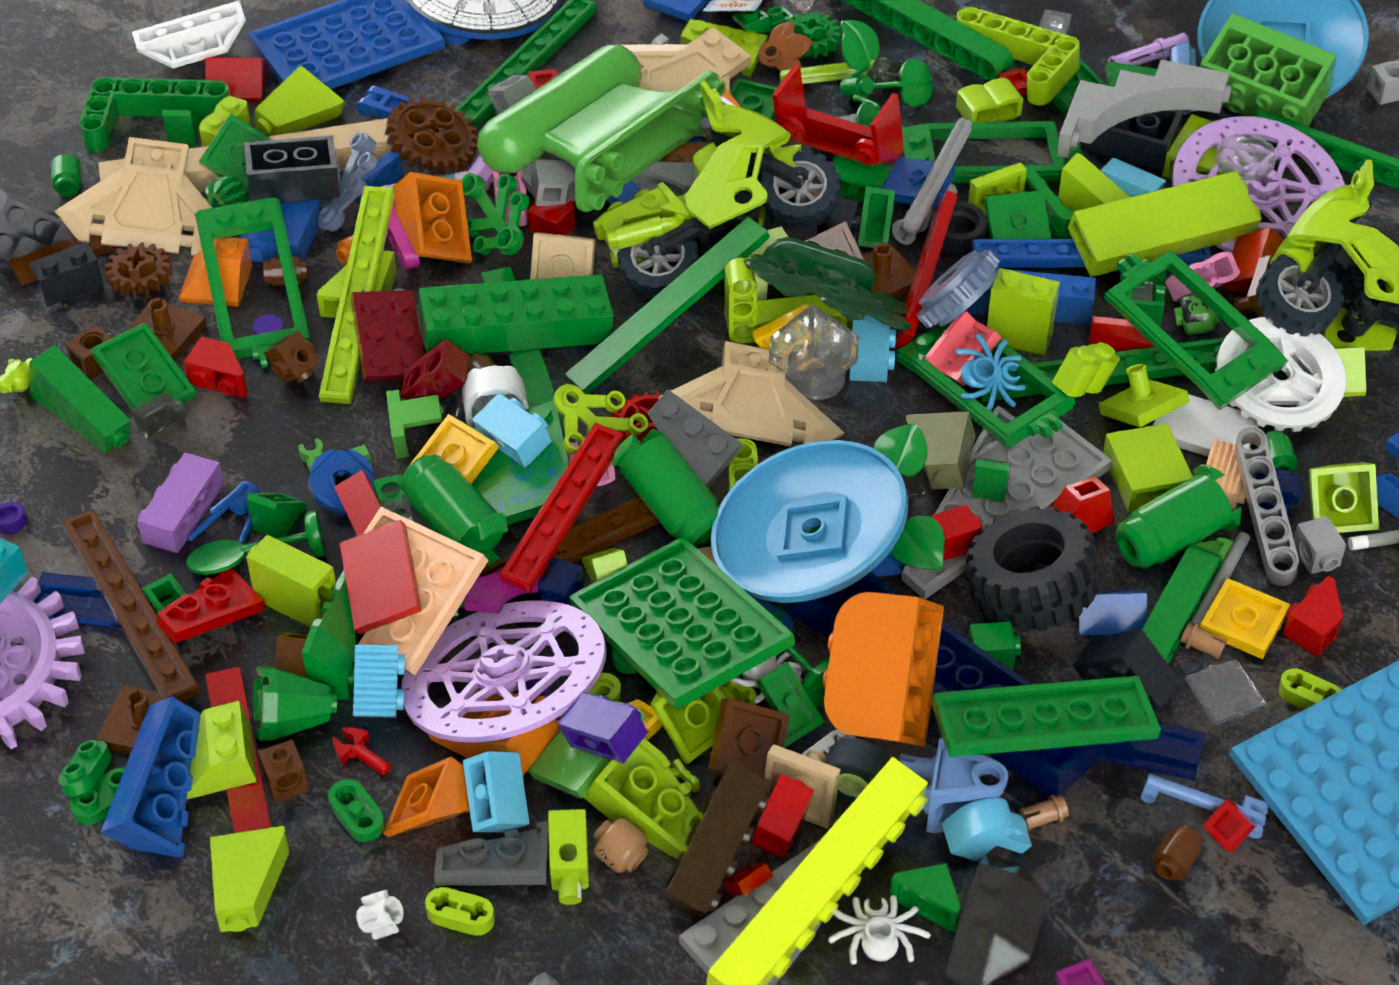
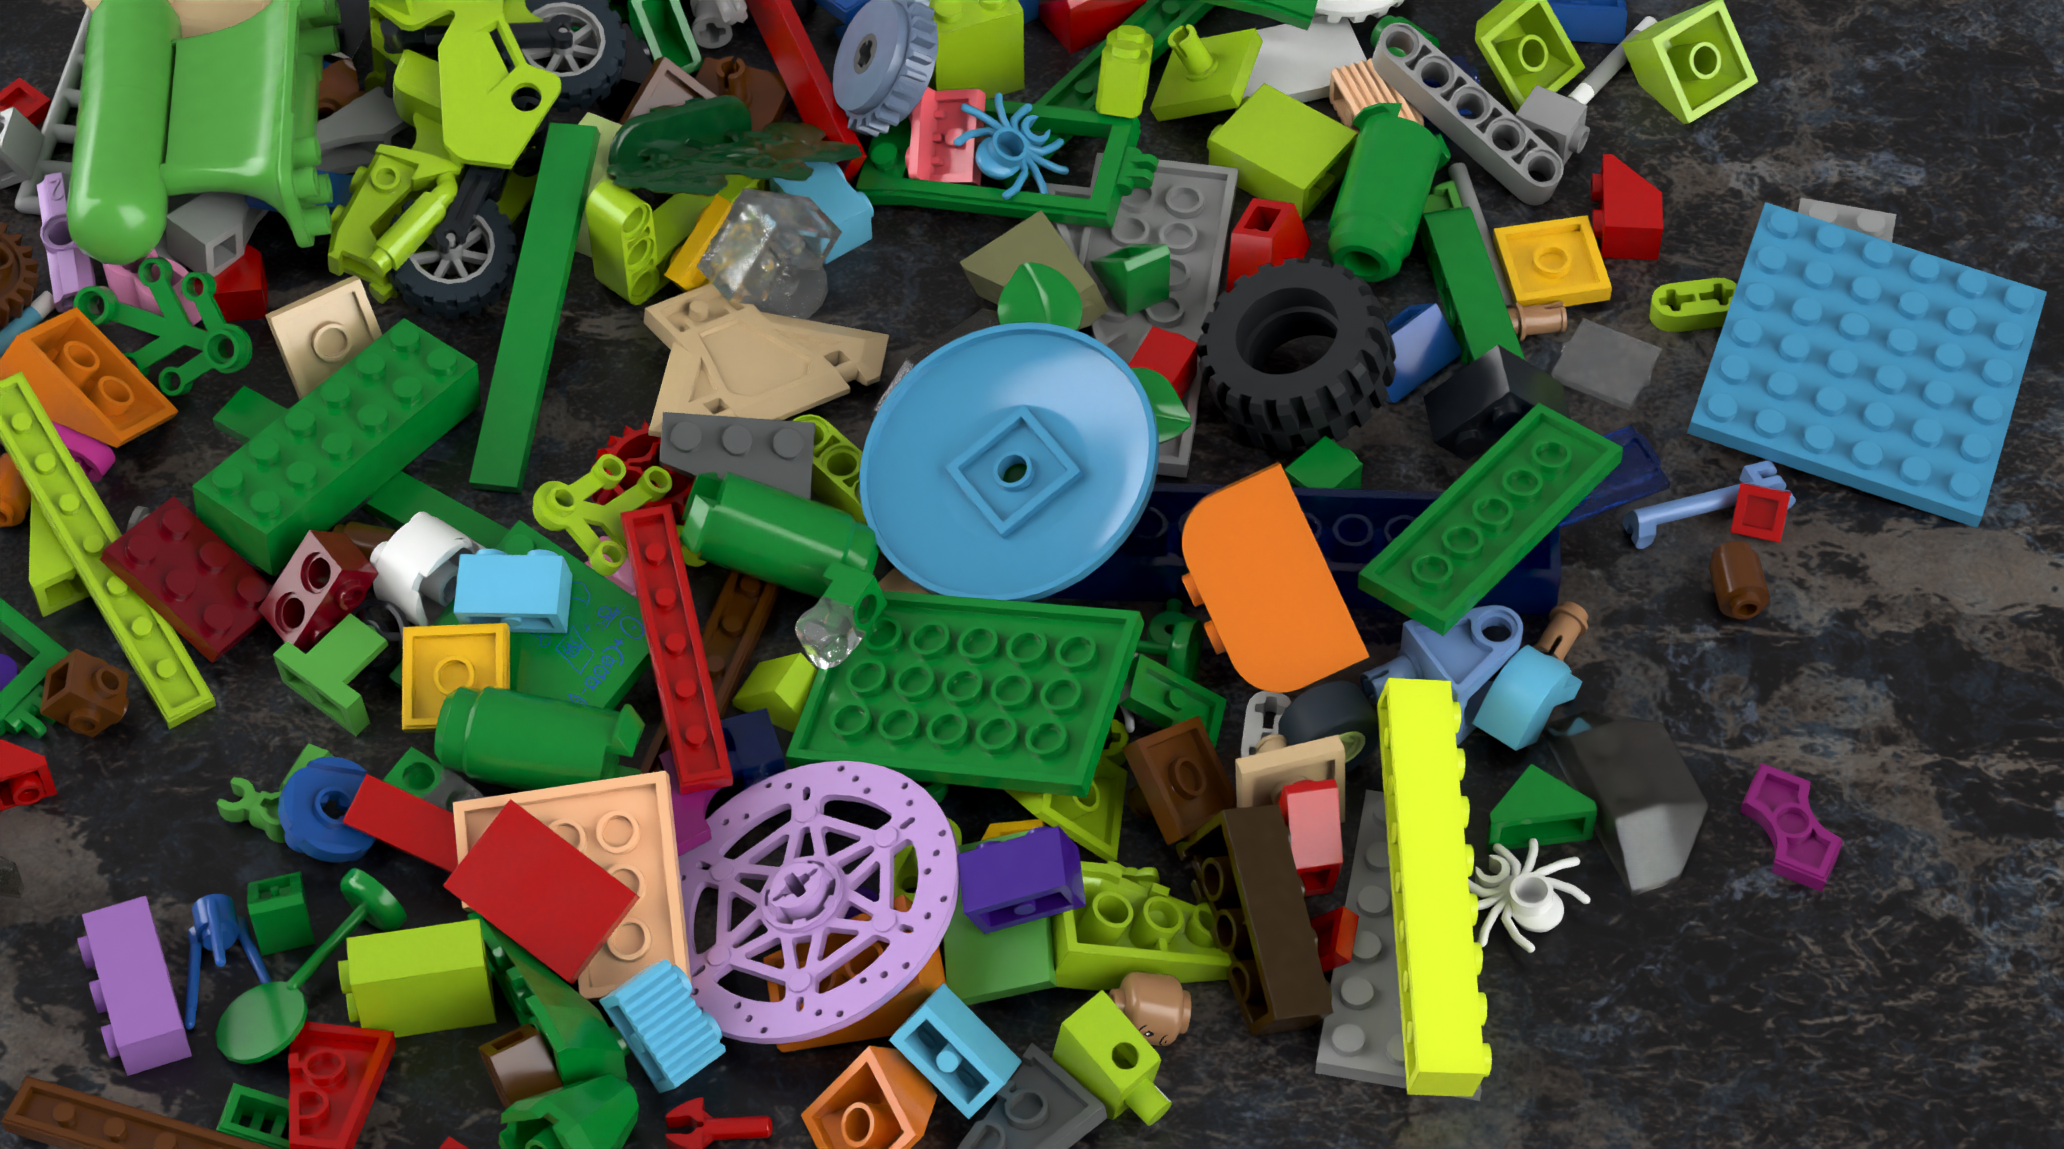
camera: 40 degrees left, 5 degrees up
(656, 544) = (840, 615): none -> leg

